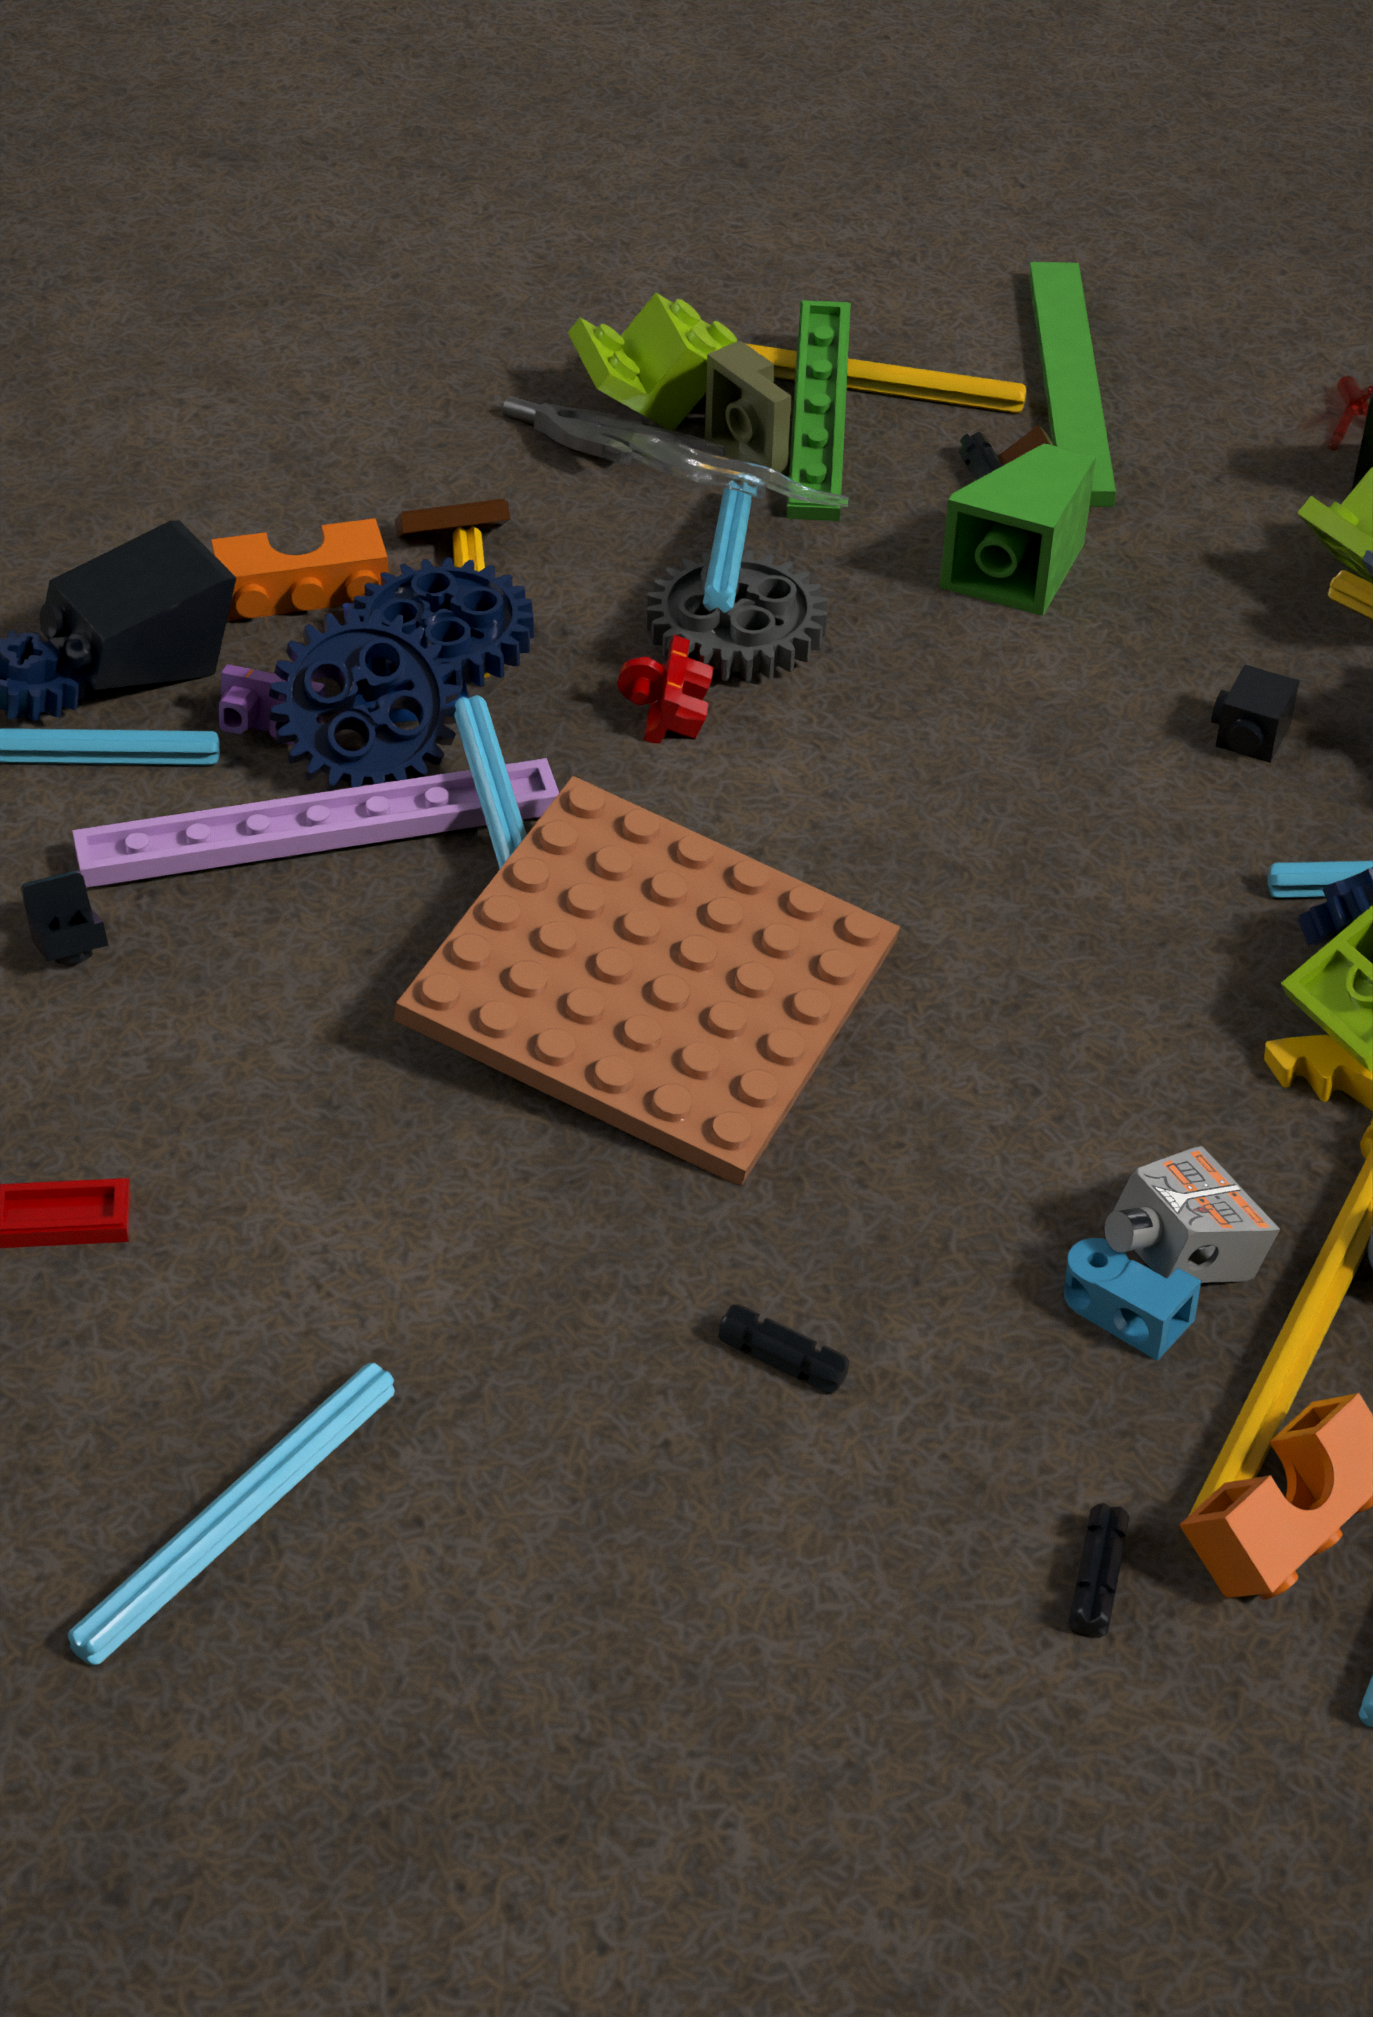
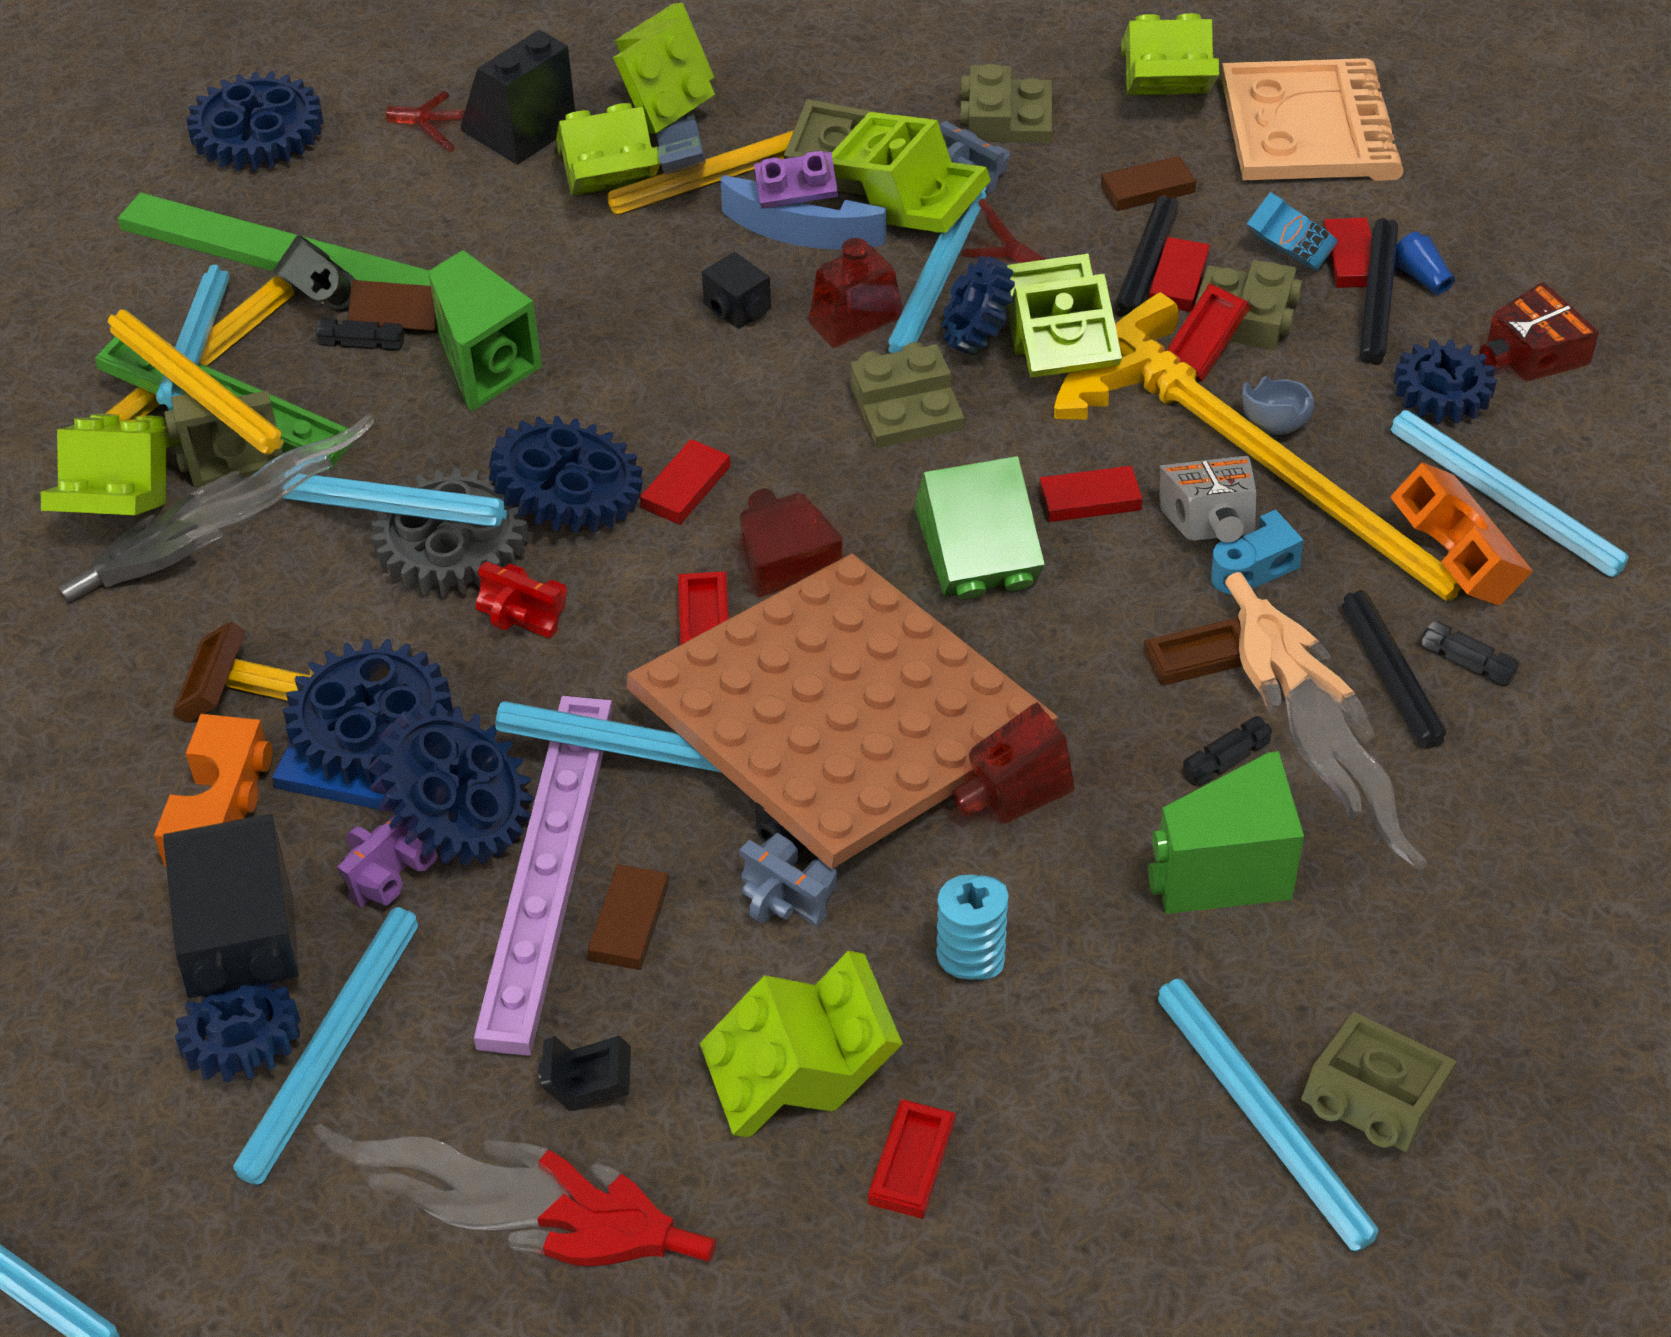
camera: 65 degrees left, 5 degrees up
(142, 1054) = (800, 1044): none -> lime bracket
(288, 905) = (628, 917): none -> reddish brown tile
(309, 1601) = (1377, 1082): none -> olive plate
(358, 1153) = (972, 926): none -> medium azure piece
(368, 1000) = (780, 887): none -> sand blue hips
(604, 1354) = (1229, 841): none -> bright green slope
(626, 1143) = (1017, 768): none -> clear red torso
(759, 342) = (196, 382): none -> yellow axle
(760, 833) = (701, 603): none -> red tile
(865, 665) = (565, 474): none -> dark blue gear
(876, 860) = (785, 540): none -> clear red torso
(878, 348) = (197, 326): none -> medium azure axle
(894, 1417) = (1315, 707): none -> clear piece
(933, 769) = (685, 481): none -> red tile
(939, 1287) = (1195, 651): none -> reddish brown tile
(992, 1012) = (979, 527): none -> slope
(1020, 1491) = (1394, 669): none -> black axle
(1037, 397) = (315, 274): none -> pearl dark grey piece
(1142, 1112) = (1090, 493): none -> red tile
(1194, 904) = (905, 394): none -> olive plate
(1245, 296) = (274, 110): none -> dark blue gear
(1314, 801) = (854, 294): none -> clear red torso

